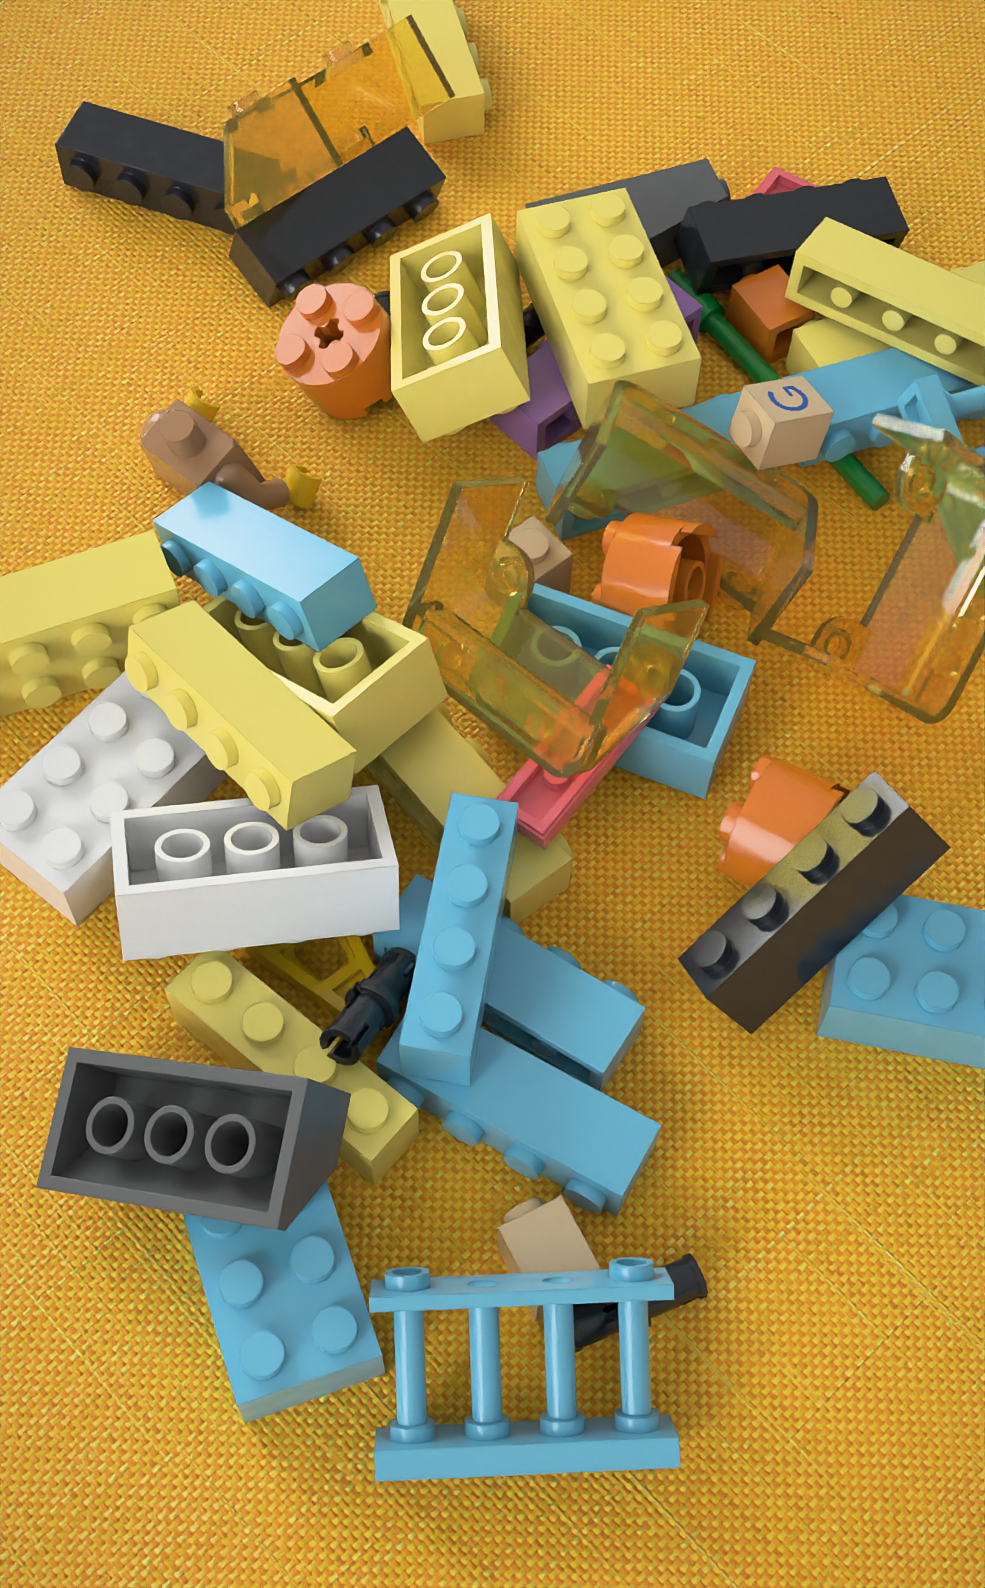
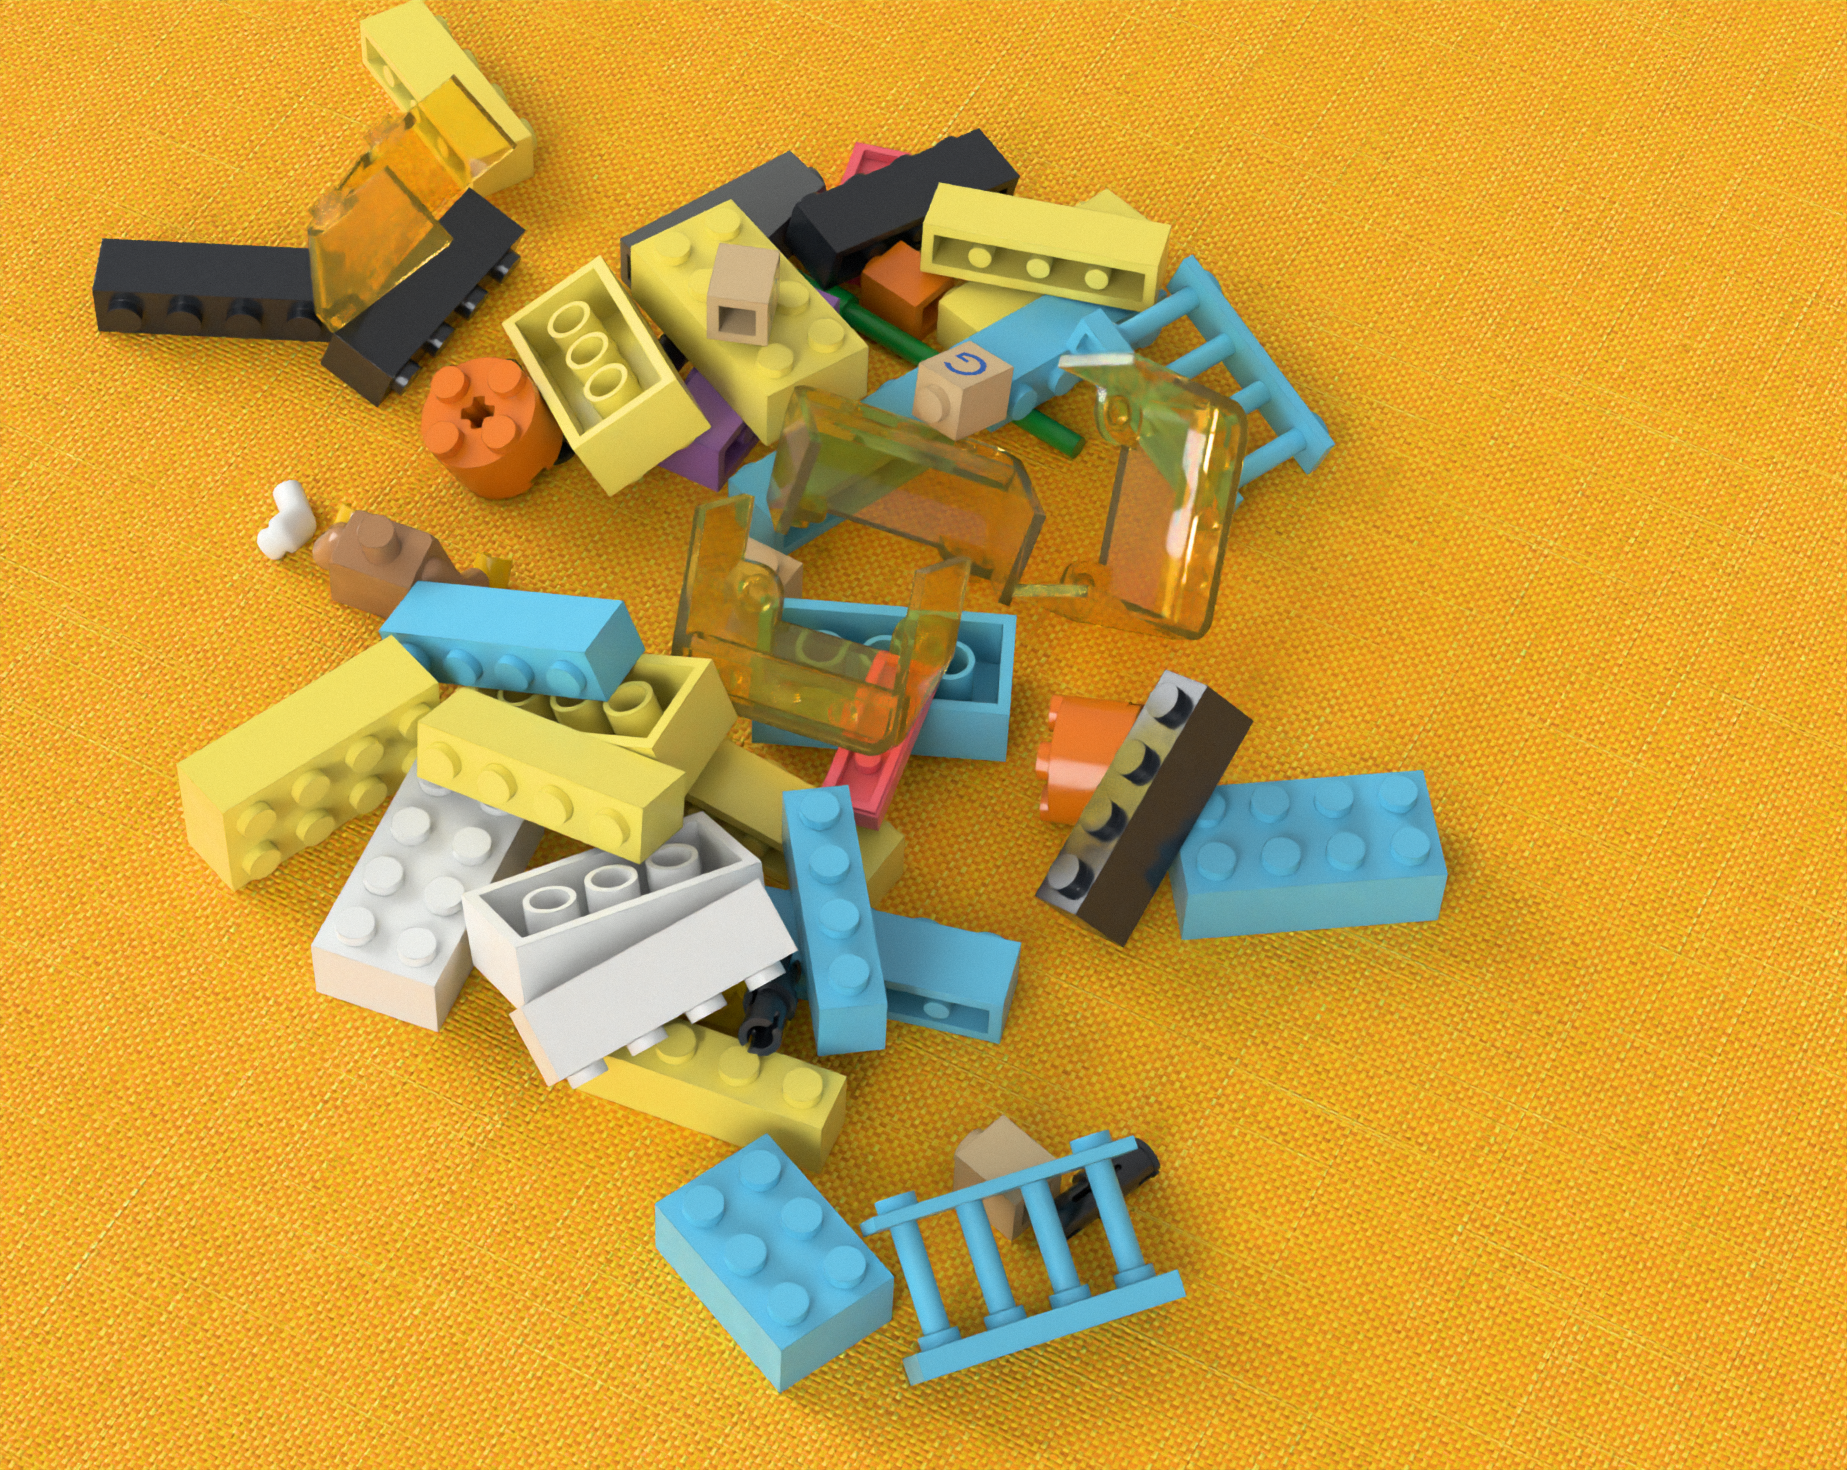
camera: 20 degrees left, 10 degrees down
(145, 397) = (291, 526): none -> white arm
(192, 1137) = (647, 1143): dark grey slope -> none
(246, 967) = (653, 983): none -> white brick
(537, 1120) = (952, 1067): medium azure brick -> none
(594, 279) = (743, 294): none -> tan brick
(657, 563) = (883, 549): orange brick -> none

